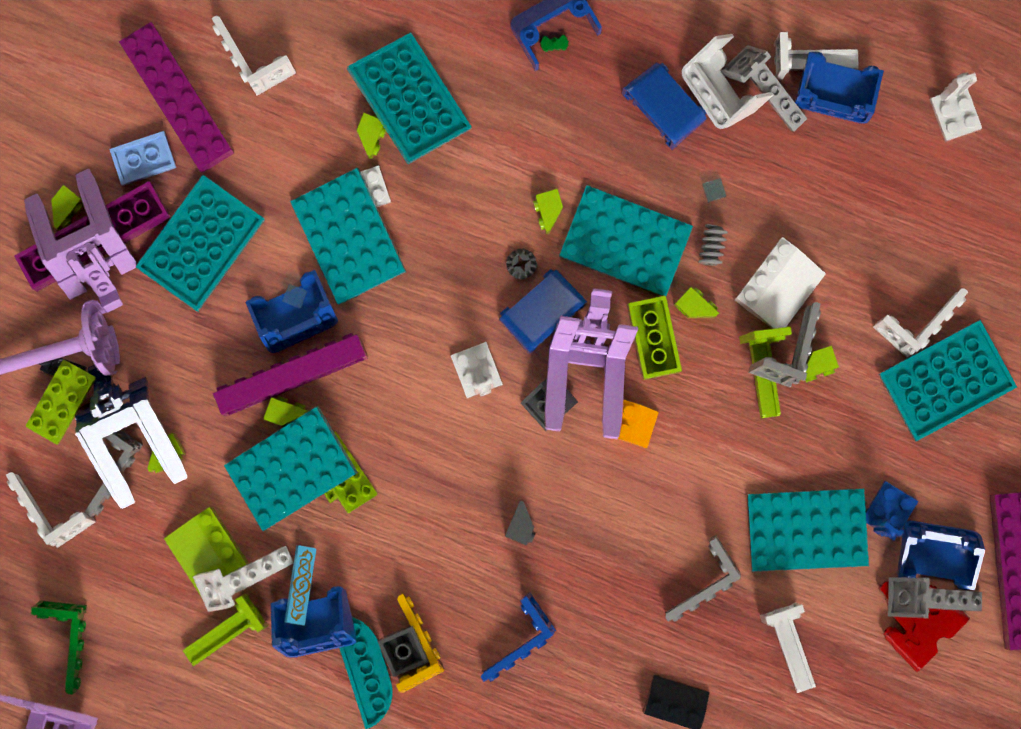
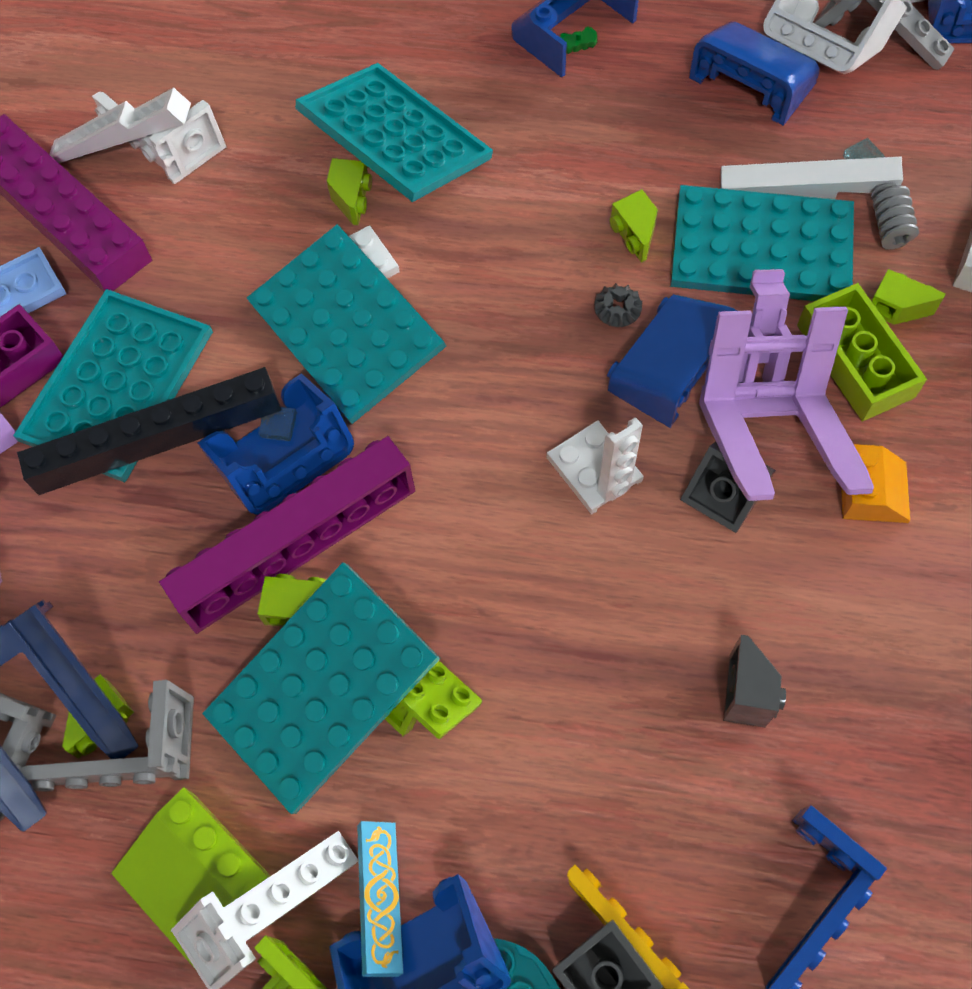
camera: 10 degrees left, 20 degrees down
(203, 479) = (166, 741): none -> light grey bracket
(219, 290) = (148, 431): none -> black brick
(226, 59) = (122, 125): none -> white slope
(671, 201) = (814, 178): none -> white slope

